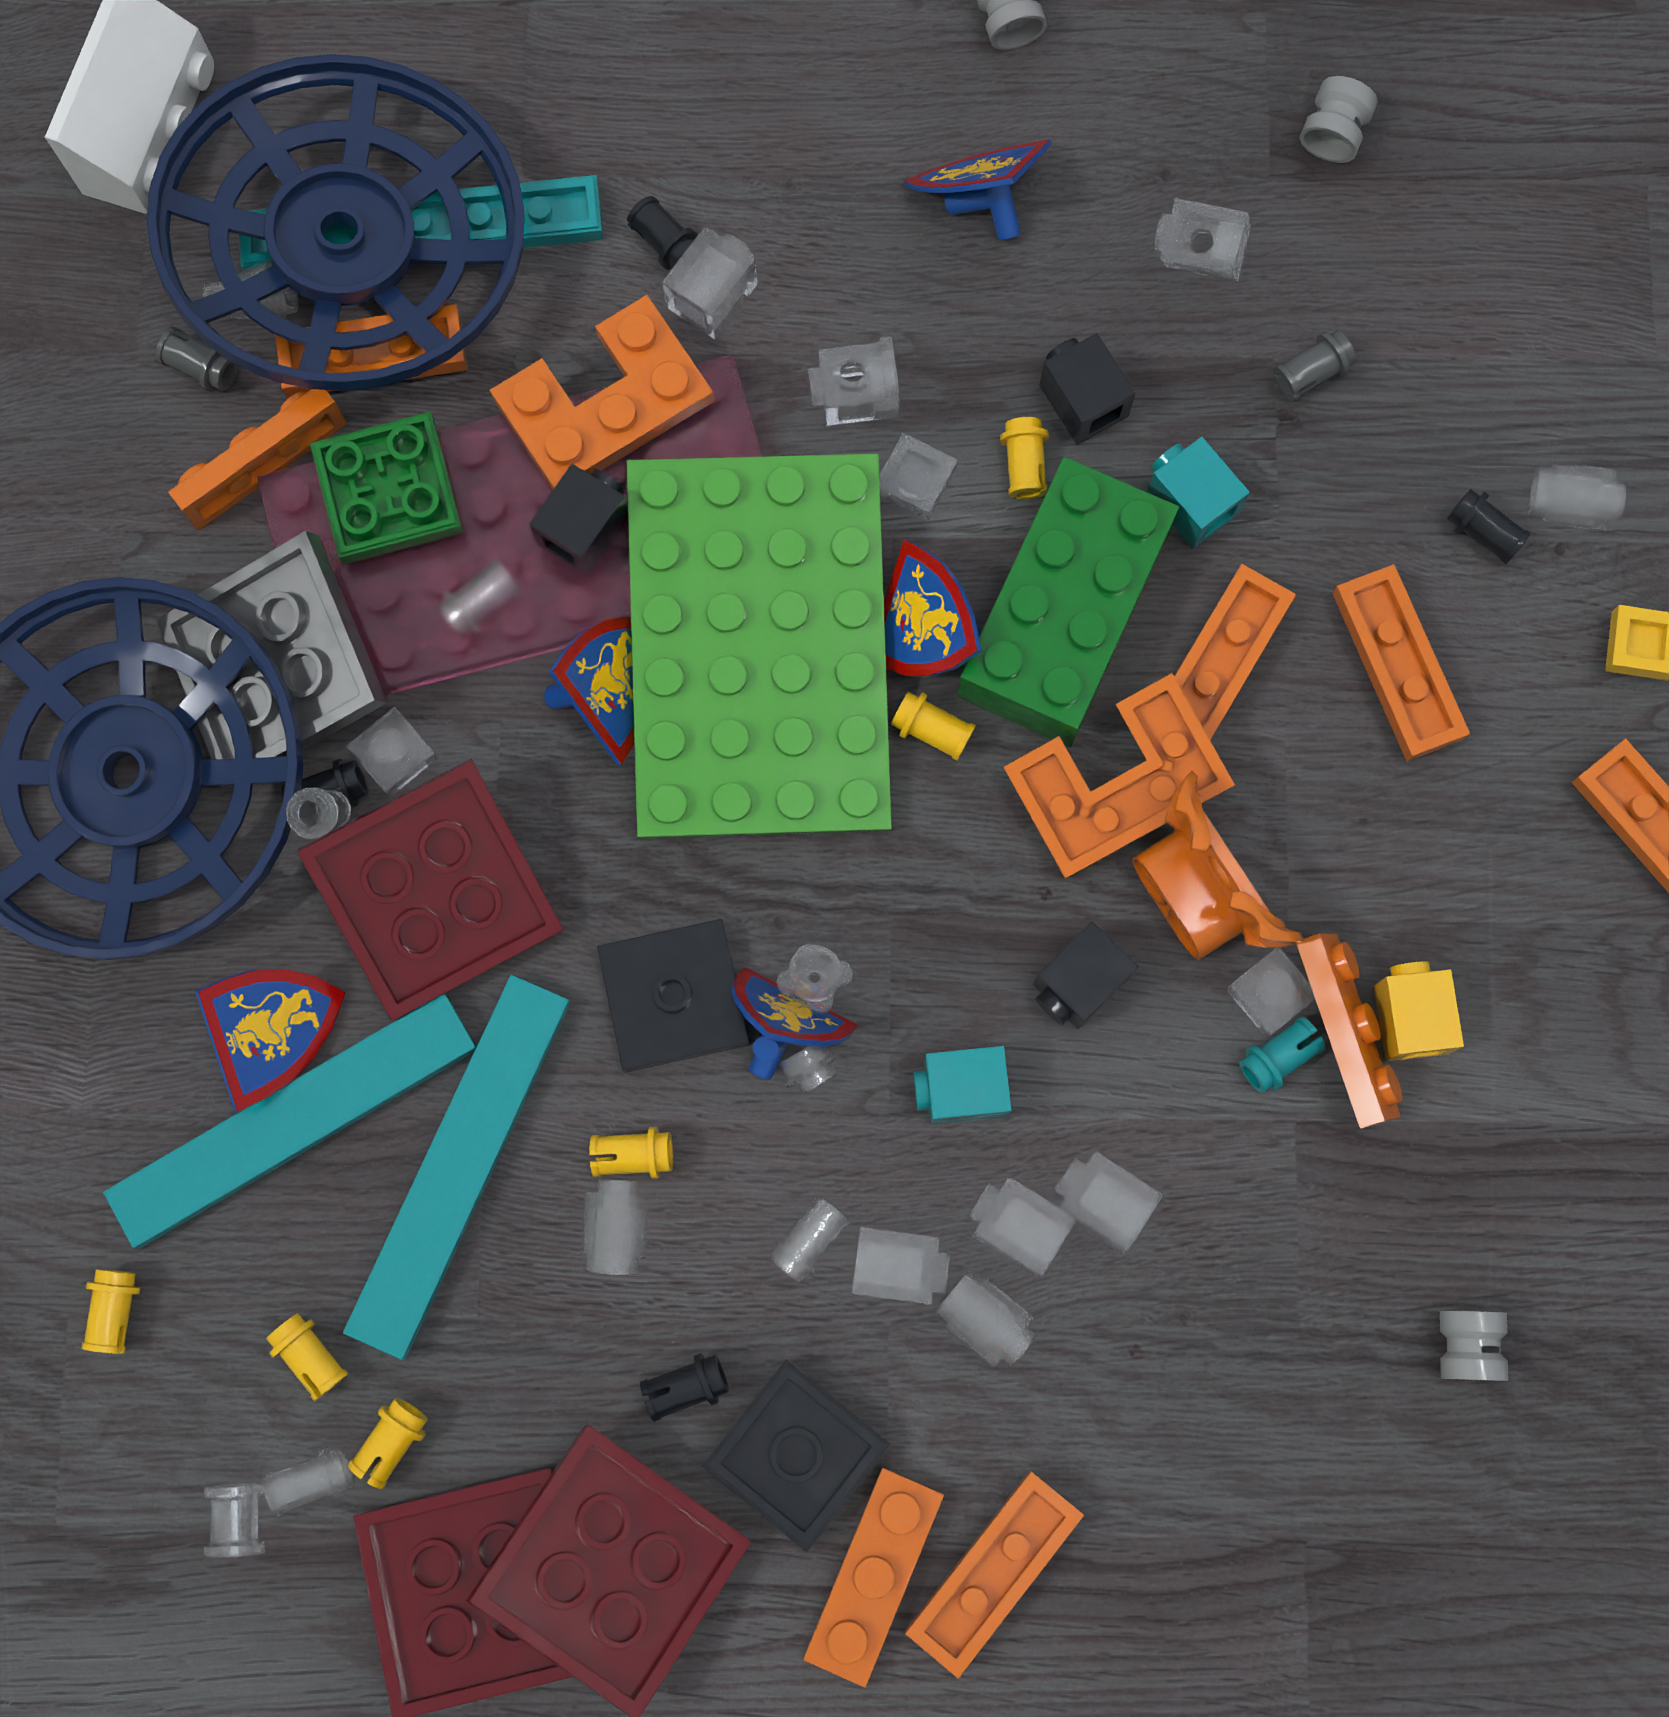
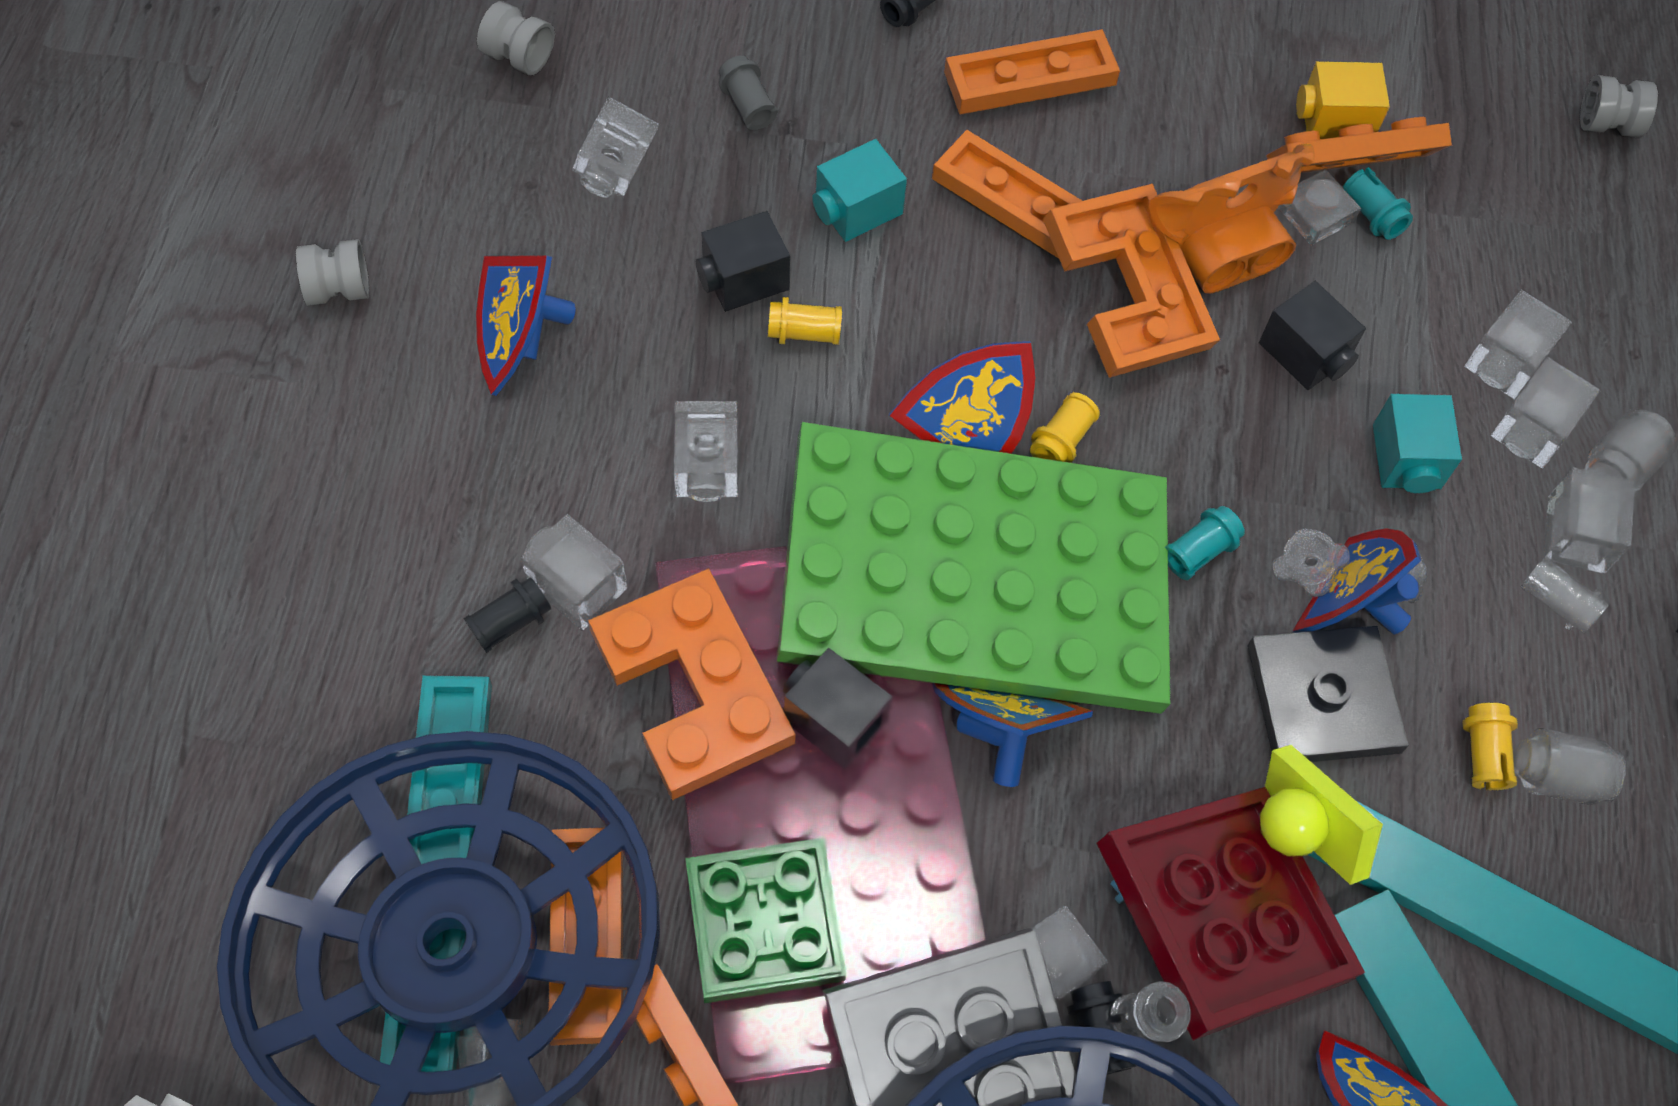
camera: 90 degrees left, 15 degrees down
(477, 598) = (910, 827): clear pin -> none
(517, 948) = (1317, 815): none -> neon yellow tile
(823, 869) = (1217, 532): none -> teal pin
(916, 476) = (810, 403): clear plate -> none
(1067, 601) = (952, 290): green brick -> none

